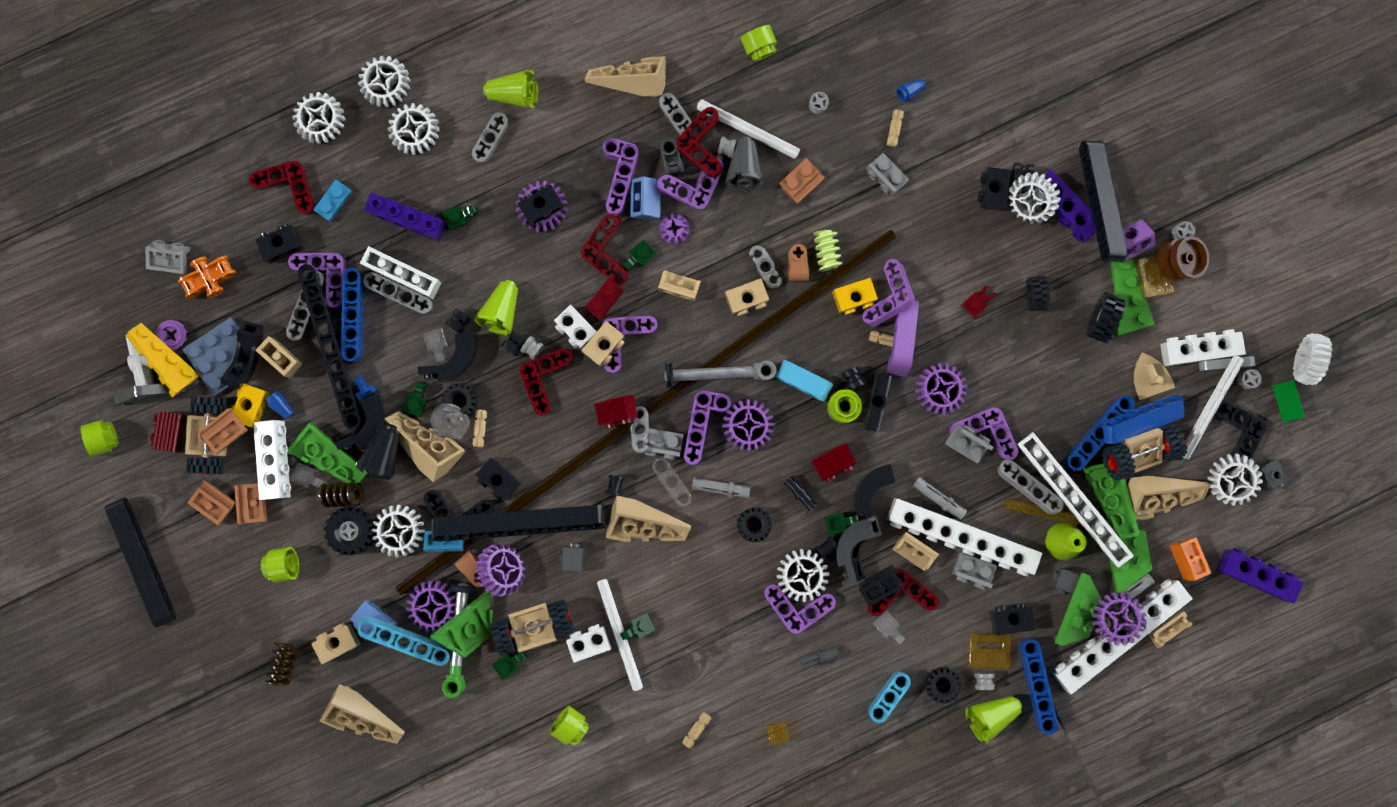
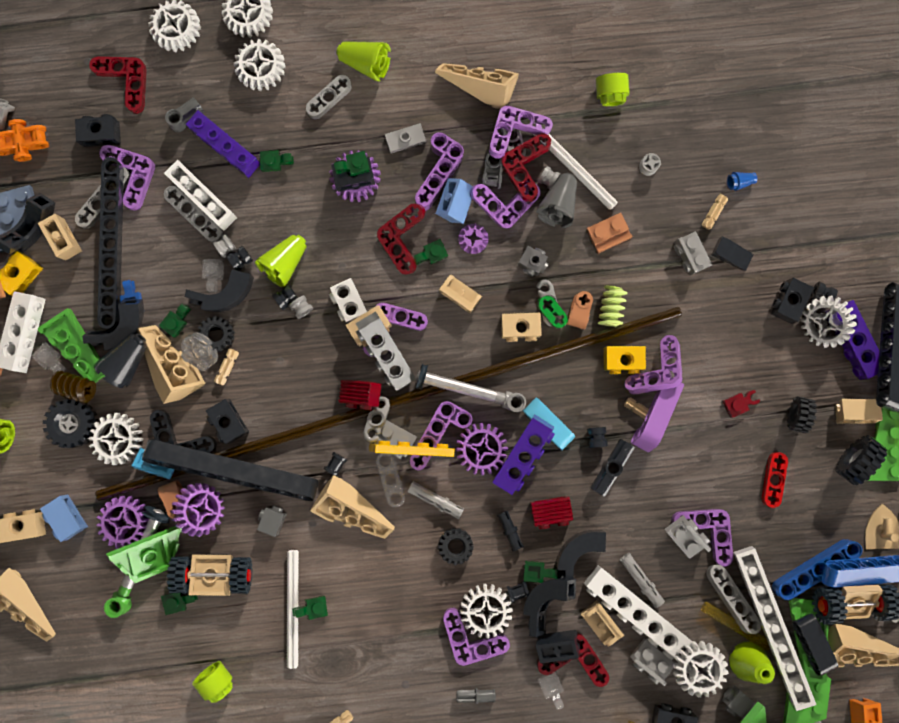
camera: 20 degrees right, 0 degrees up
(279, 405) = (45, 281): blue cone -> none
(333, 200) = (157, 109): dark azure plate -> none
(347, 307) = (140, 211): blue beam -> none
(359, 199) = (184, 114): none -> dark grey piece
(396, 634) = (78, 537): medium azure beam -> none
(439, 313) = (224, 246): none -> light grey wheel
(538, 371) = (299, 332): dark red beam -> none
(541, 195) = (355, 163): none -> dark green plate
(577, 154) = (405, 138): none -> light grey plate
(590, 648) = (260, 612): white brick -> none
(604, 299) = (384, 283): dark red brick -> none
(606, 343) = (373, 326): none -> brick
(672, 108) = (509, 124): none -> medium lavender beam
(675, 446) = (405, 448): none -> yellow wing
(738, 225) = (533, 255): none -> flat silver brick
(774, 270) = (555, 309): none -> green beam
(778, 444) = (510, 482): none -> dark purple brick
(852, 399) = (587, 468): lime piece -> none
(924, 162) = (732, 253): none -> black slope
(938, 380) = (679, 483): medium lavender gear -> none
(1014, 568) = (713, 681): none -> white gear
(1040, 376) = (782, 476): none -> red beam
(1090, 273) = (858, 411): none -> tan hinge
(1117, 502) = (815, 644): none -> black beam

